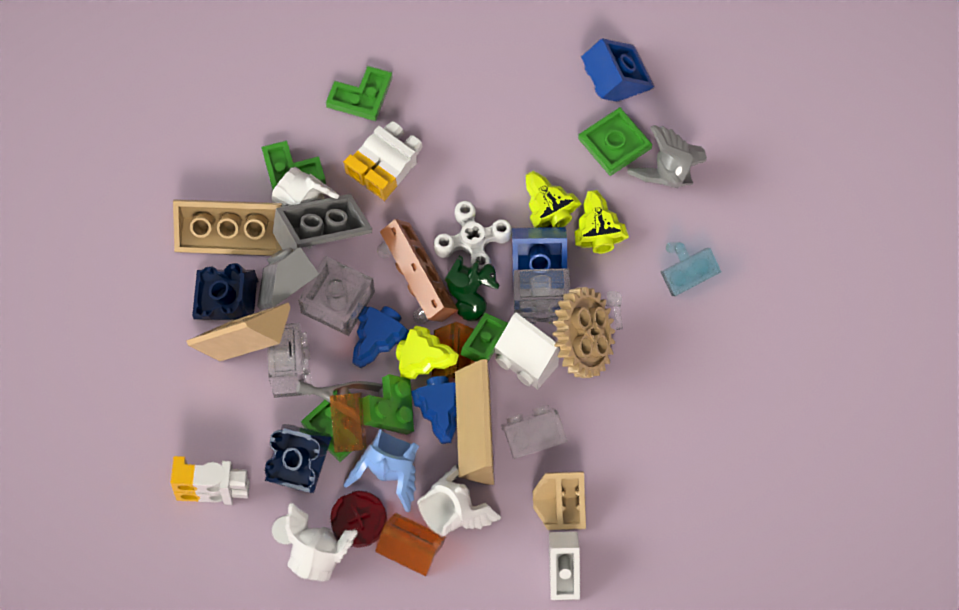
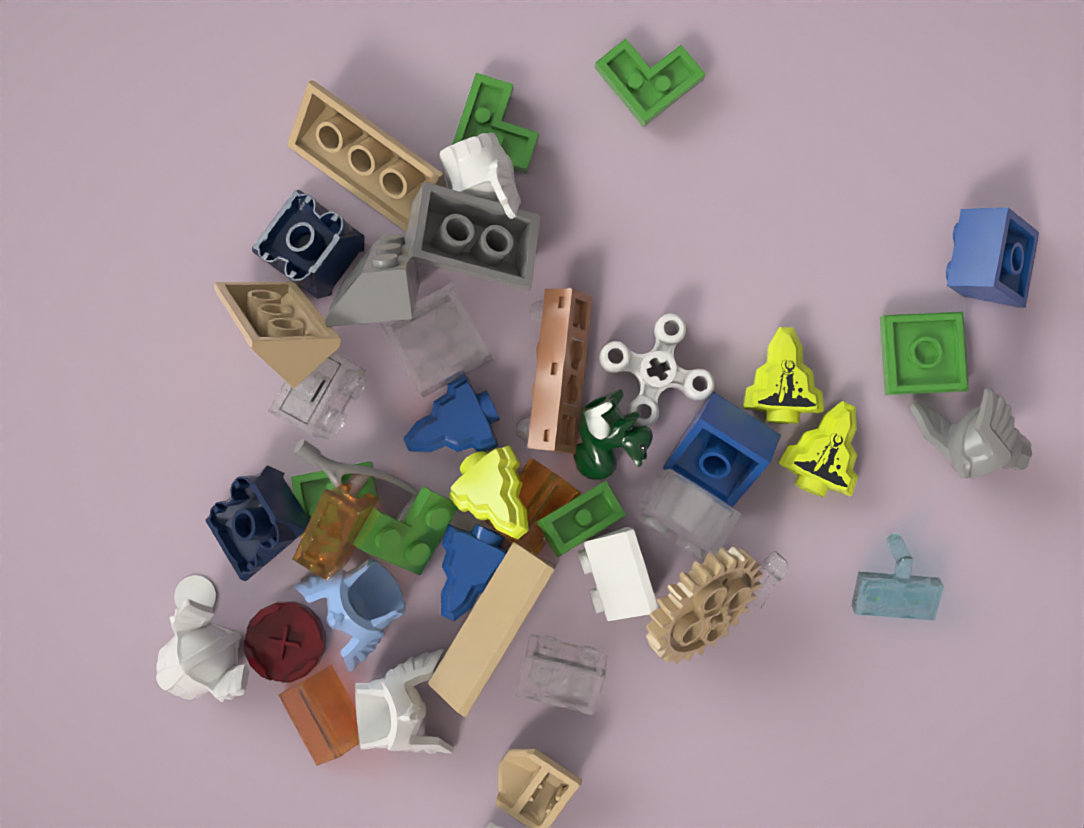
camera: 30 degrees right, 20 degrees up
(208, 482) = (118, 485): white hips -> none
(383, 160) = (616, 189): white hips -> none

